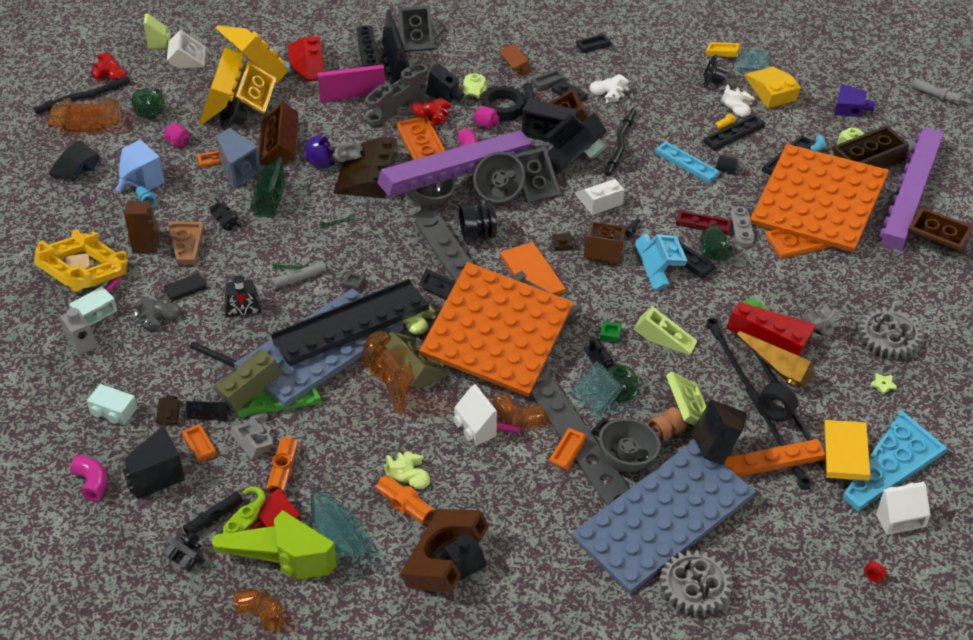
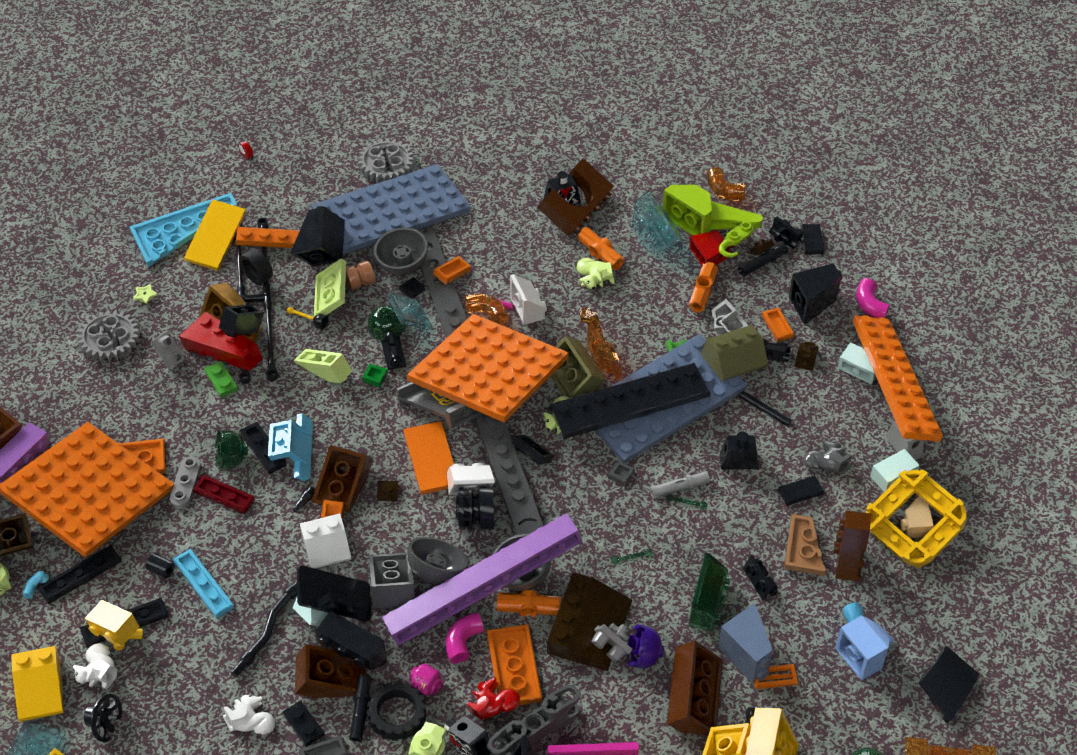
camera: 170 degrees left, 5 degrees up
(79, 369) = (897, 379): none -> orange plate
(151, 554) = (812, 239): none -> black tile
(176, 135) = (825, 711): dark pink head -> none
(212, 525) = (761, 246): none -> dark brown plate
(488, 238) = (469, 476): none -> white slope
(603, 218) = (332, 508): none -> orange tile
(688, 374) = (320, 320): none -> black hinge
(738, 113) = (111, 622): none -> brick
(755, 315) = (241, 320): none -> black brick
(904, 508) = (198, 183): white slope -> none

